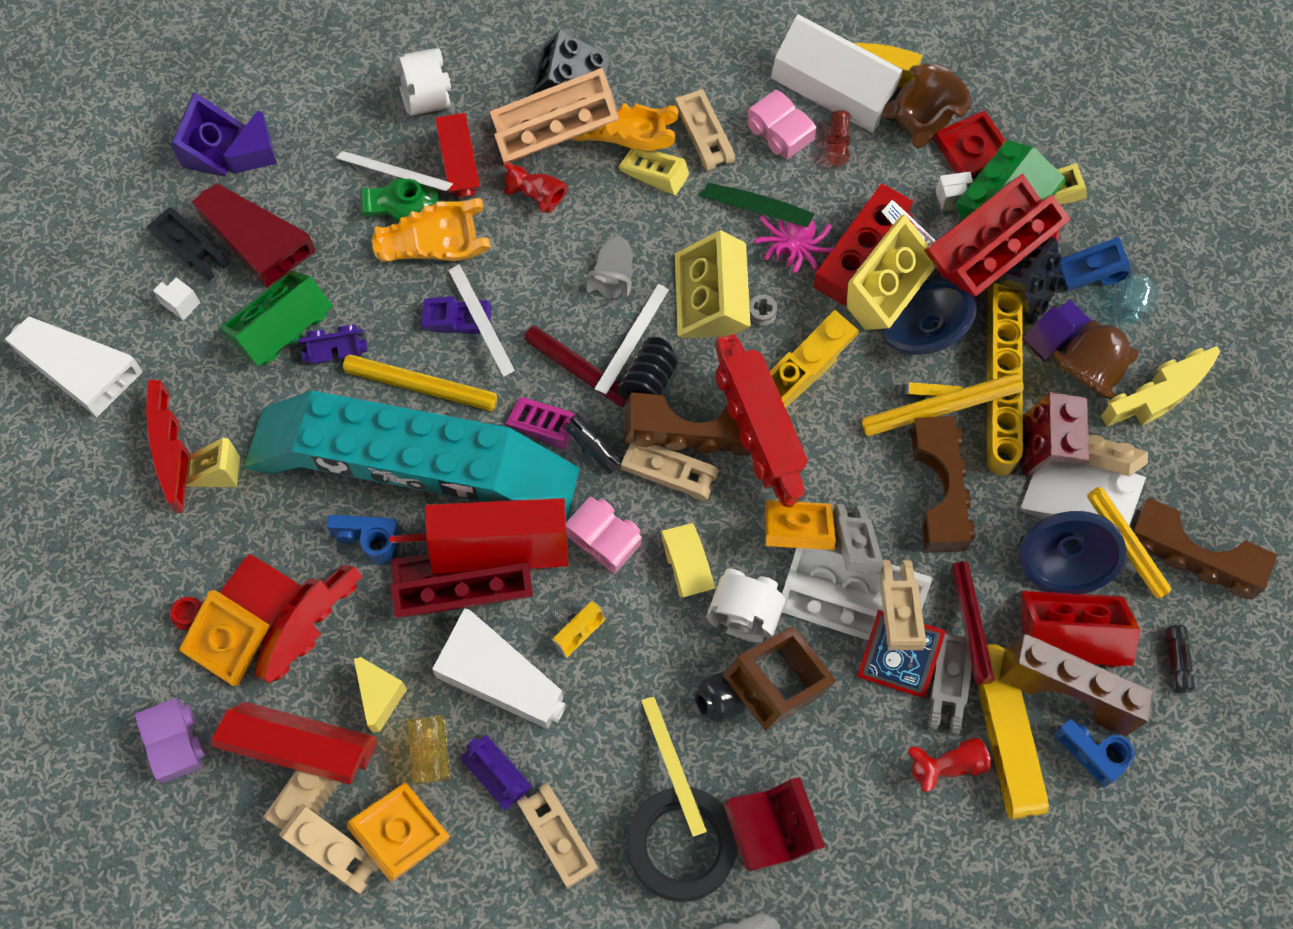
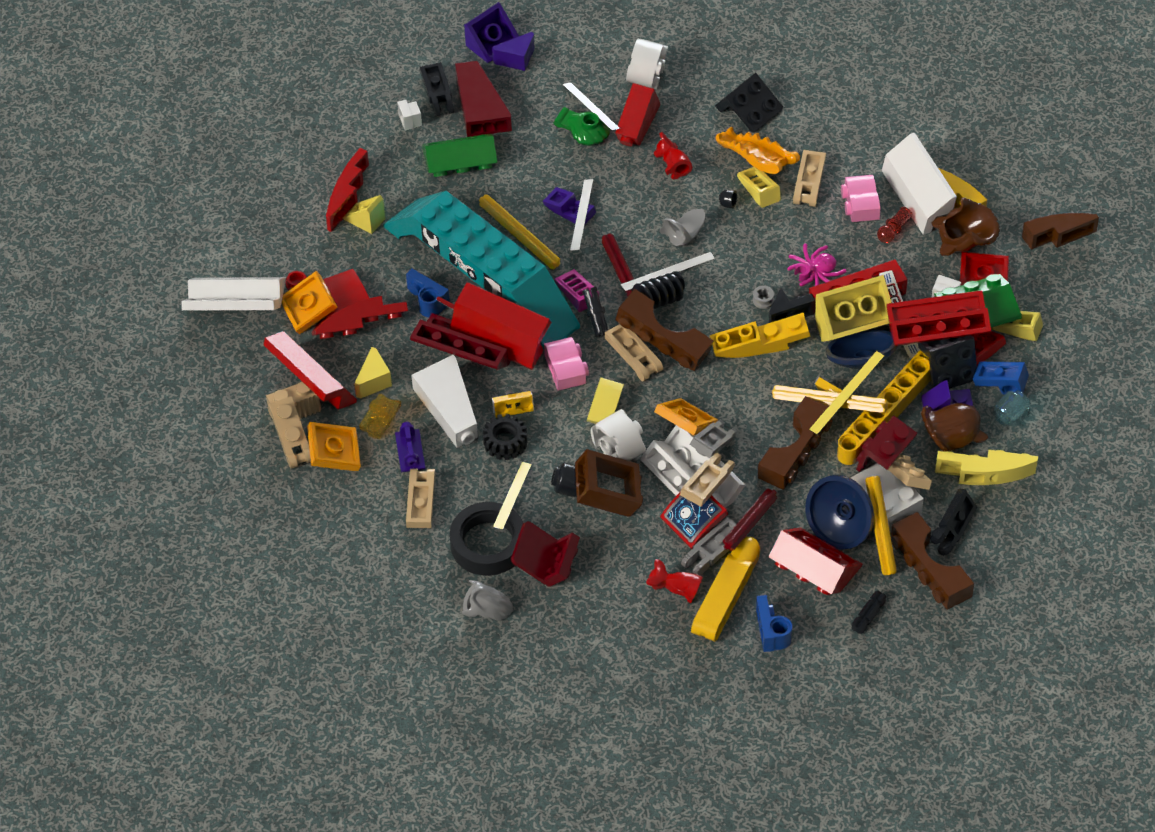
camera: 35 degrees right, 15 degrees down
(77, 365) = (326, 122): white slope -> none
(117, 683) = (235, 293): none -> white slope
(170, 740) = (242, 338): medium lavender brick -> none
(320, 345) = (475, 180): dark purple hinge -> none
(436, 233) = (591, 153): light orange animal -> none
(554, 115) = (714, 120): light nougat slope -> none
(601, 661) = (505, 448): none -> black tyre
(632, 205) = (728, 198): none -> black hinge
(712, 287) = (741, 267): light yellow slope -> none
(757, 203) = (808, 235): dark green sticker -> none
(761, 419) = (705, 344): red hinge -> none
(803, 313) = (784, 308): none -> black slope
(965, 389) = (847, 391): none -> light yellow sticker
(1012, 50) = (1059, 229): none -> reddish brown slope
(1044, 668) = (801, 601): reddish brown arch -> none
(1185, 483) = (954, 522): none -> black hinge

